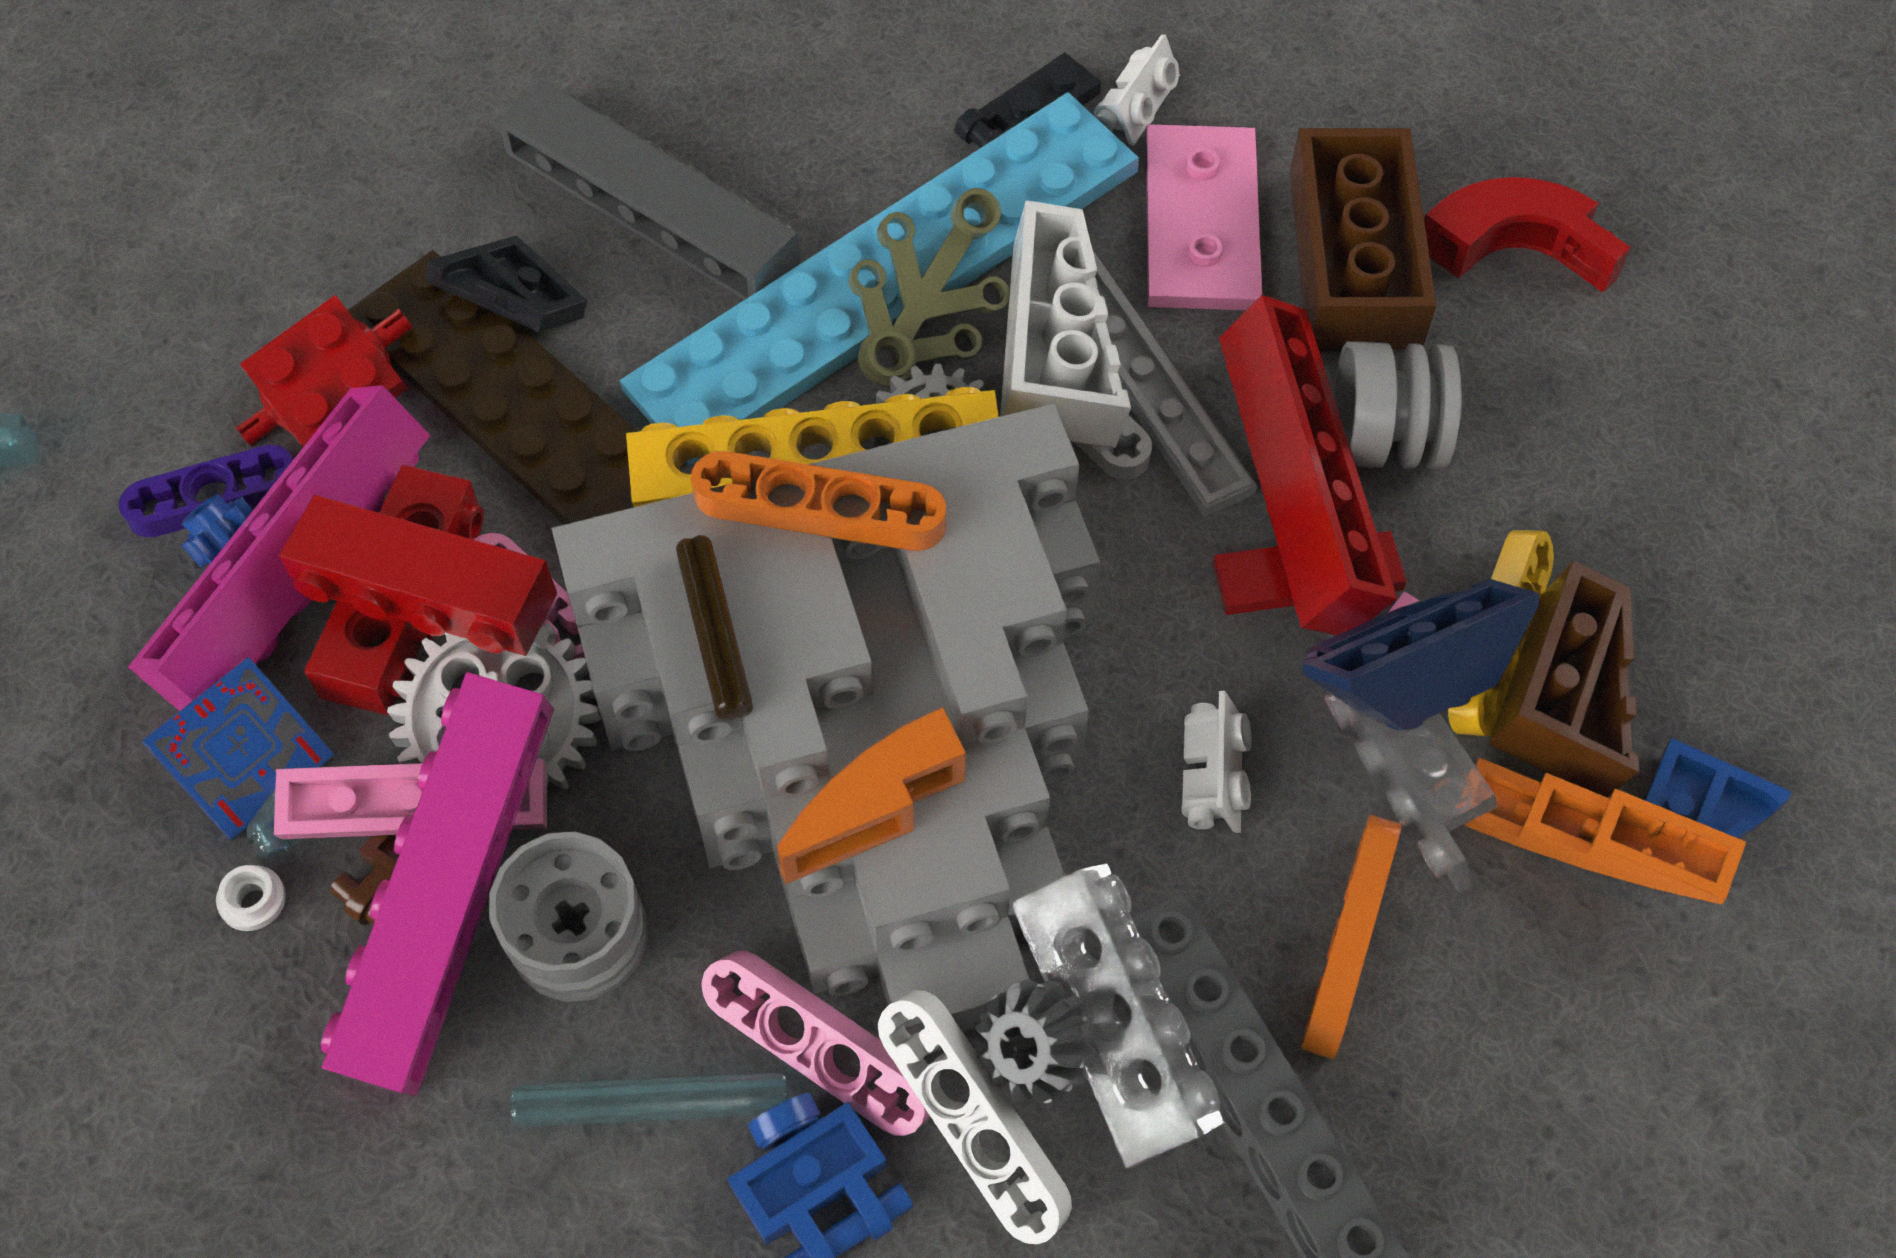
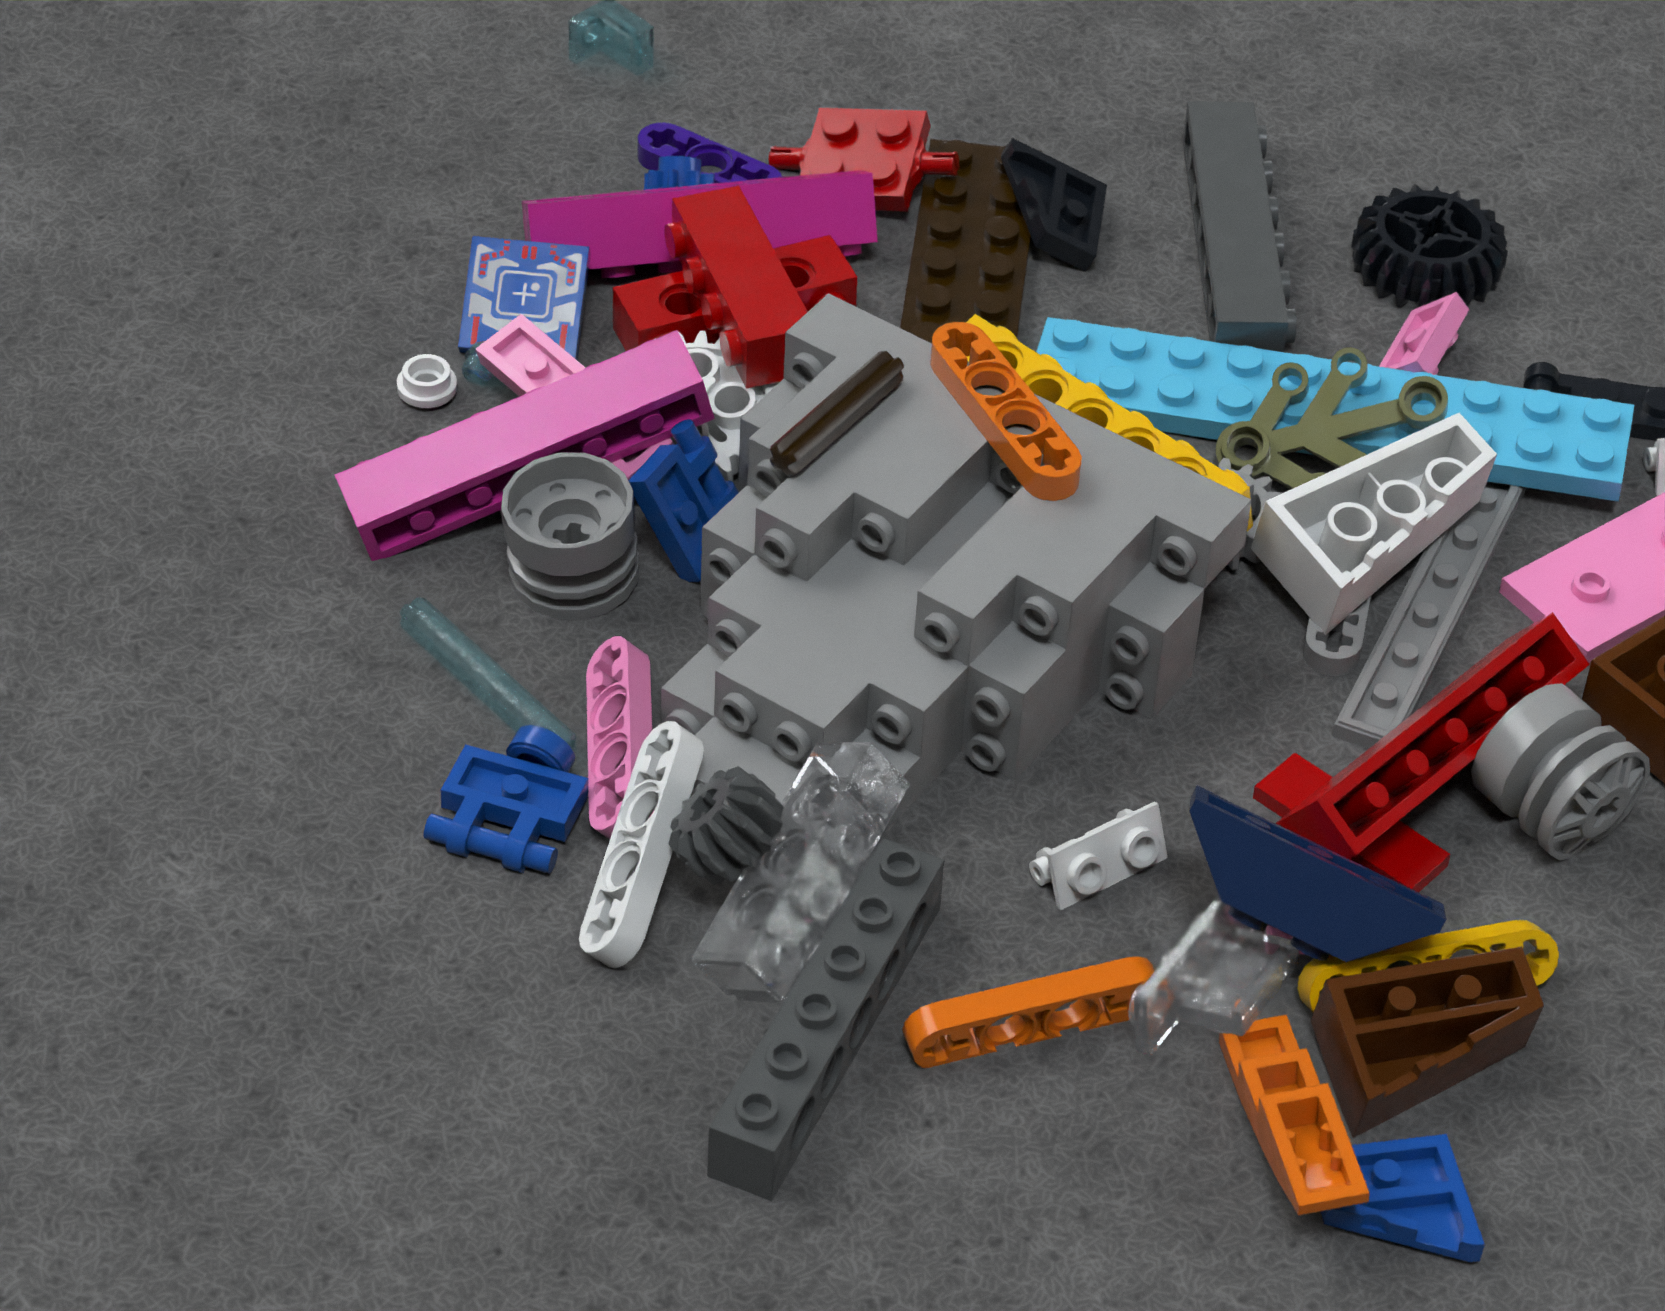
camera: 50 degrees right, 15 degrees down
(609, 794) = (680, 493): none -> blue plate
(784, 90) = (1429, 246): none -> black gear
(873, 163) = (1426, 335): none -> bright pink plate
(874, 796) = (806, 593): orange slope -> none

